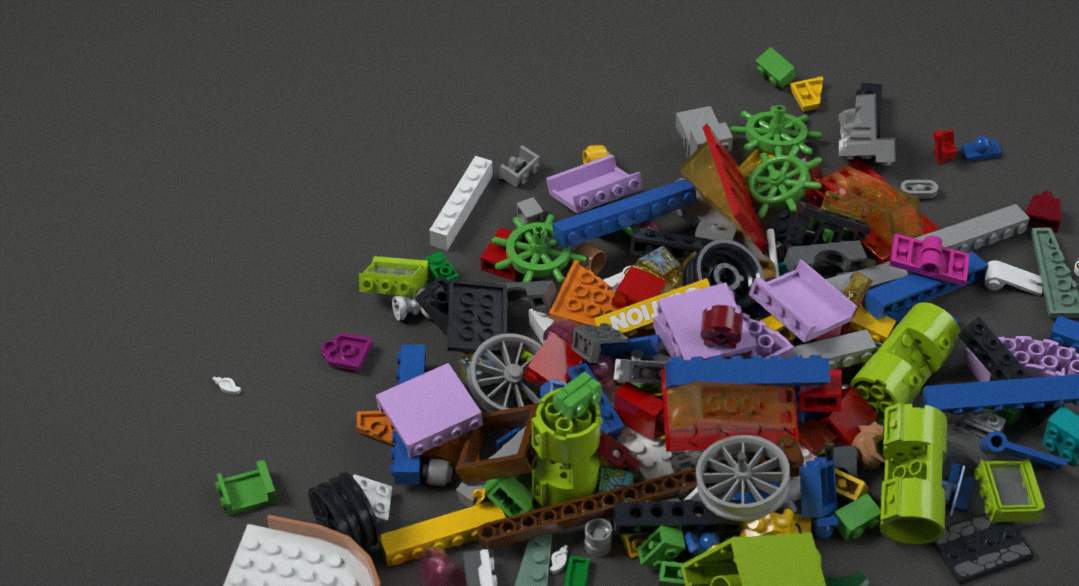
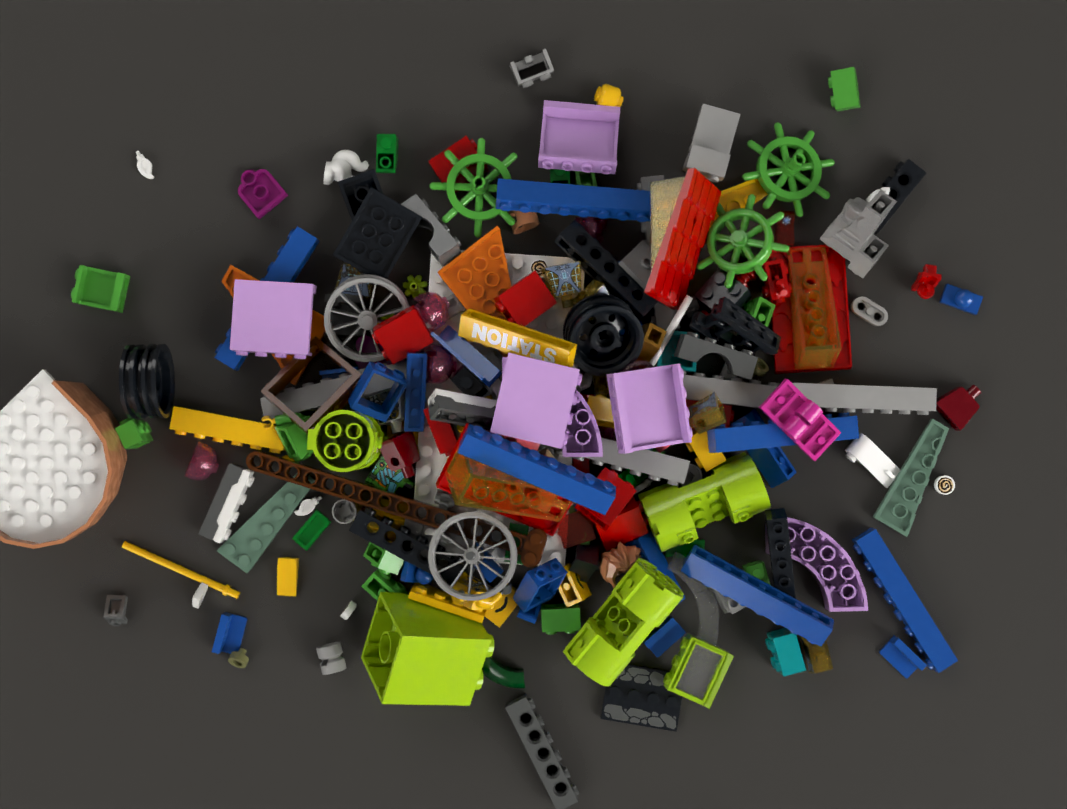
camera: 30 degrees right, 40 degrees up
(378, 496) = (188, 364): white hinge -> none
(394, 276) = (339, 140): lime window -> none
(437, 472) = (259, 368): light grey head -> none
(461, 203) = (454, 80): white brick -> none
(529, 211) = (507, 129): light grey brick -> none
(577, 396) = (355, 435): bright green brick -> none
(589, 337) = (445, 345): dark grey bracket -> none
(721, 326) = (535, 425): dark red brick -> none
(807, 93) = (855, 135): yellow wing -> none
(845, 205) = (773, 311): clear yellow torso -> none
(951, 487) = (654, 648): light blue shield -> none
(997, 442) = (715, 634): blue piece -> none

